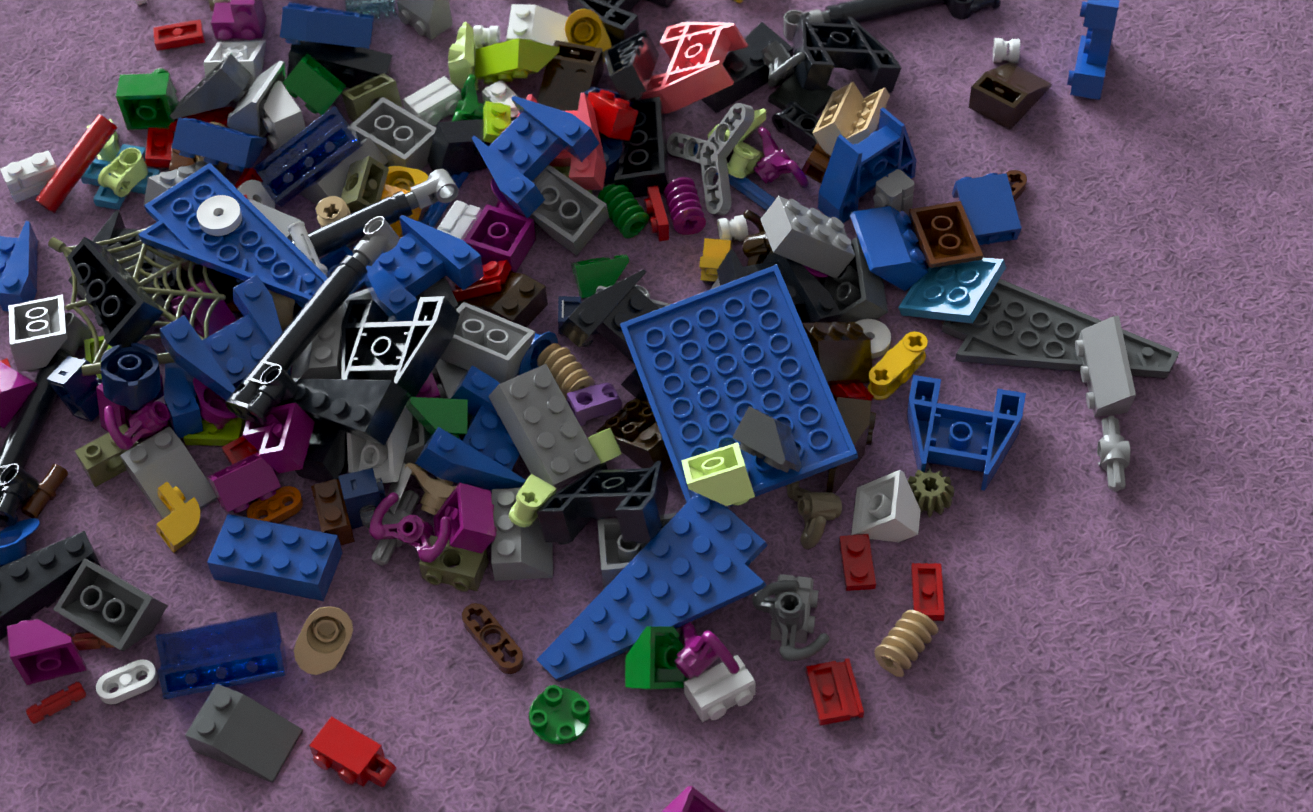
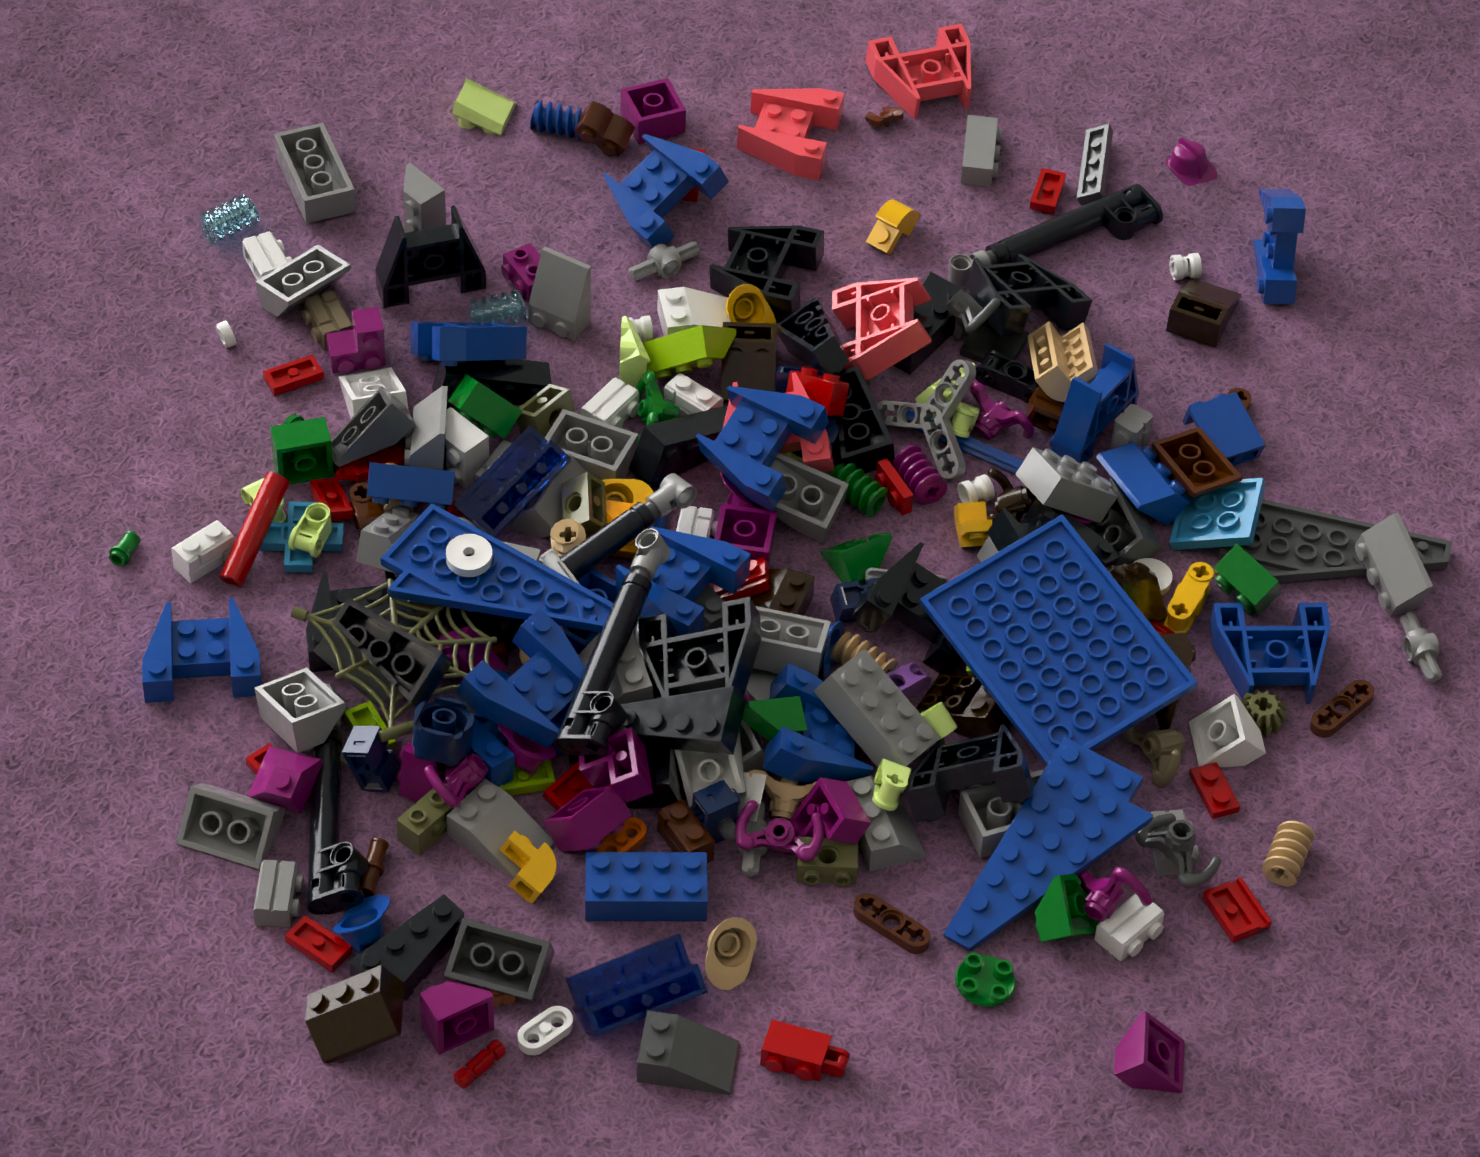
camera: 20 degrees left, 5 degrees down
(495, 120) = (700, 416): lime plate -> none
(719, 475) = (1081, 721): yellowish green slope -> none
(768, 437) = (1113, 680): dark grey slope -> none
(928, 590) = (1290, 801): red plate -> none
(954, 357) = (1246, 580): none -> green brick
(1017, 491) = (1343, 698): none -> reddish brown beam

